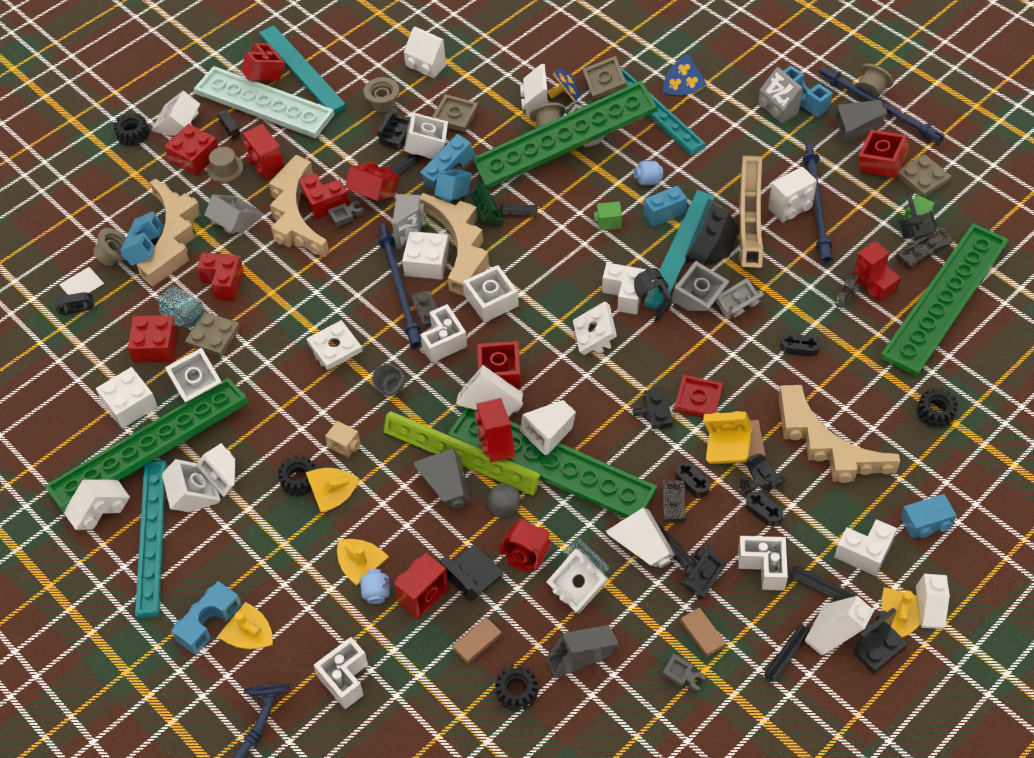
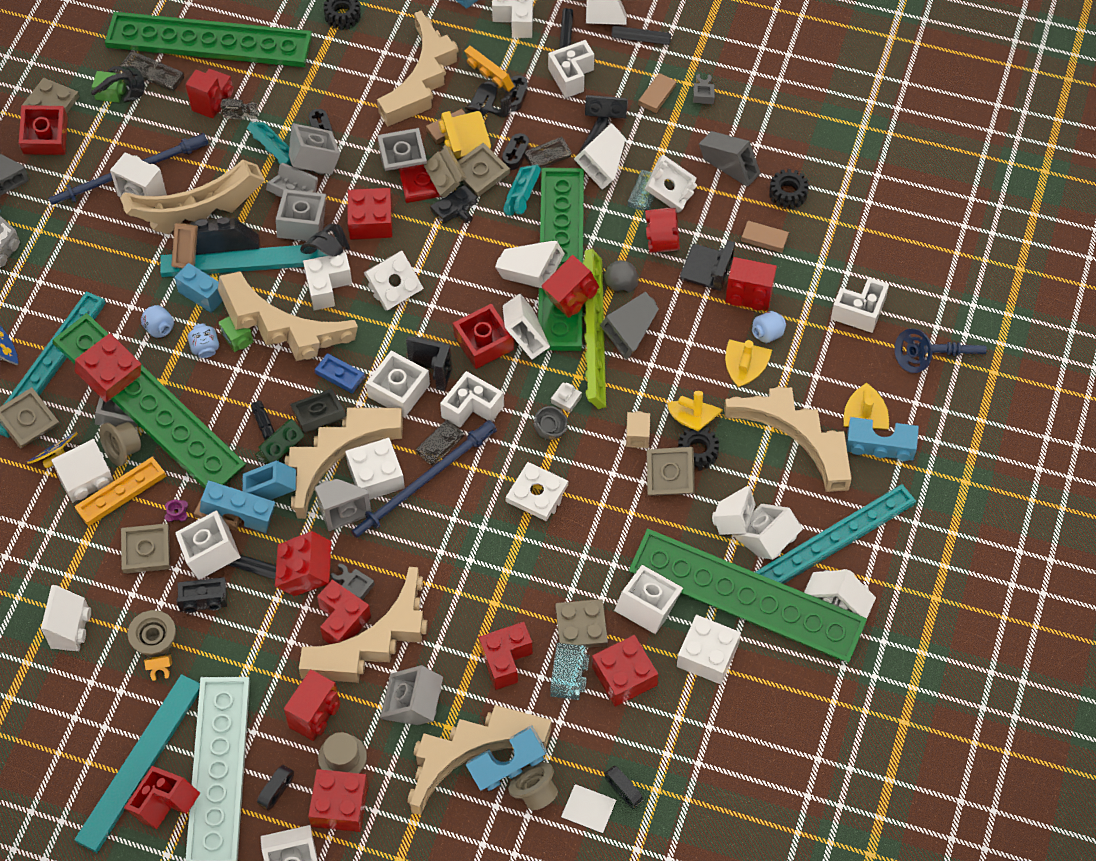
camera: 120 degrees left, 5 degrees up
(261, 562) = (803, 426): none -> tan arch
(286, 439) = (670, 471): none -> dark tan plate
(358, 94) = (158, 663): none -> light orange tile
(410, 407) = (566, 397): none -> white tile
(476, 138) = (174, 505): none -> magenta plate
(494, 326) = (431, 355): none -> black bracket
(500, 238) = (318, 410): none -> pearl dark grey plate
(510, 111) = (120, 491): none -> light orange plate
(530, 267) = (339, 373): none -> blue plate
(596, 103) = (108, 367): none -> red brick
(612, 192) = (203, 341): none -> light blue head
(613, 216) = (303, 335): none -> tan arch
(642, 461) = (521, 190): none -> teal hinge
(677, 339) = (370, 213): none -> red brick
(681, 403) = (445, 171): none -> dark tan plate
(683, 440) = (482, 169): none -> dark tan plate
(704, 199) = (184, 245): none -> medium nougat tile
(727, 381) = (401, 149): none -> light grey slope
(767, 318) = (313, 149): none -> light grey slope
(794, 302) = (271, 141): none -> teal plate
(798, 490) = (488, 68): none -> light orange plate

